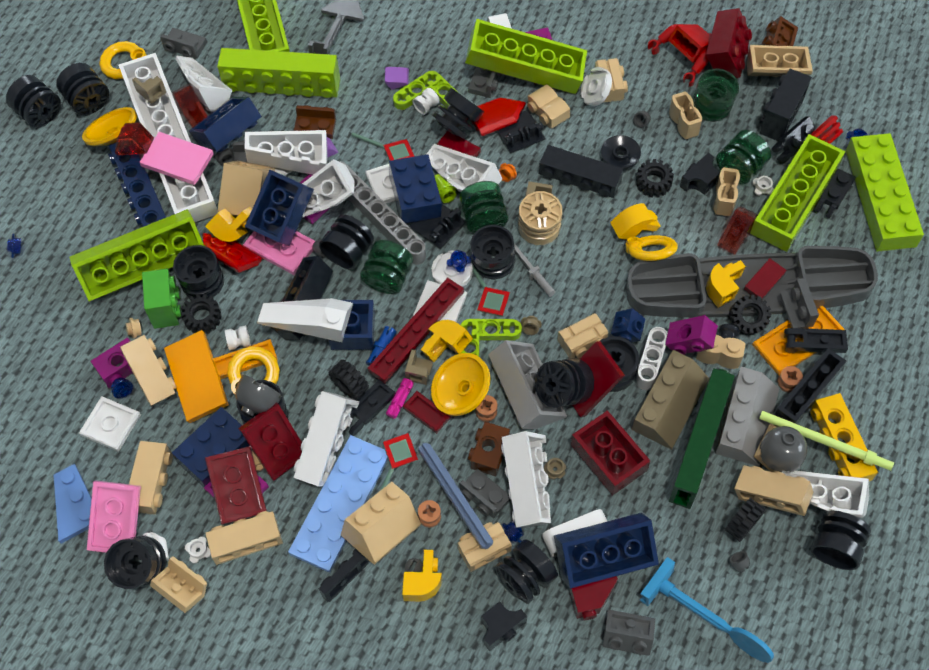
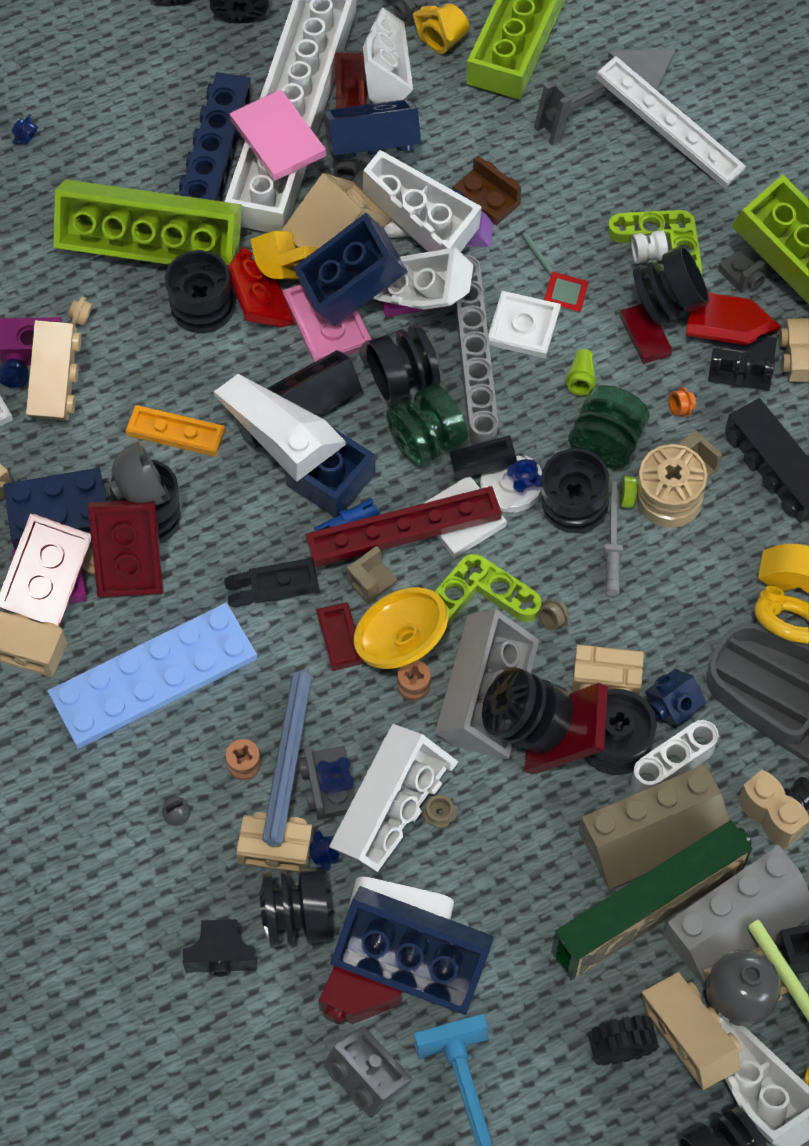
camera: 35 degrees right, 0 degrees up
(108, 127) = (235, 52): yellow dish -> none
(133, 139) = (242, 80): clear red slope -> none
(151, 89) = (312, 31): dark tan panel -> none
(161, 298) = (133, 295): bright green brick -> none
(196, 376) = (105, 414): light orange tile -> none
(201, 303) = (168, 329): black tyre -> none
(214, 43) = (443, 27): none -> yellow piece
(237, 337) = (187, 399): white wheel -> none
(249, 353) = (193, 432): yellow piece -> none
(279, 72) = (489, 102): lime brick -> none
(324, 437) = (190, 582): white wedge -> none
(343, 576) = (93, 760): black hinge -> none
(348, 379) = (272, 533): black tyre -> none
(381, 523) = (174, 729): tan slope -> none
(384, 28) = (670, 122): none -> white tile
(396, 77) = (636, 193): medium lavender slope -> none
(399, 398) = (320, 597): dark pink axle -> none
(399, 452) = (267, 662): piece -> none
(415, 188) = (541, 349): dark blue brick -> none
(425, 584) = (172, 838): yellow brick -> none
(428, 265) = (483, 457): none -> black tile
(440, 229) = (540, 413): black hinge -> none
(446, 334) = (431, 557): yellow brick -> none
(461, 168) = (623, 361): white wedge -> none
(488, 461) = (362, 744): reddish brown brick -> none
(489, 494) = (338, 784): none -> clear blue plate
(492, 300) = (533, 552): piece -> none
(518, 235) = (627, 491): none -> lime tile
(610, 452) = (520, 838): dark red brick -> none
(691, 335) = (743, 761): magenta brick -> none
(740, 561) = (578, 1088): dark grey hinge -> none

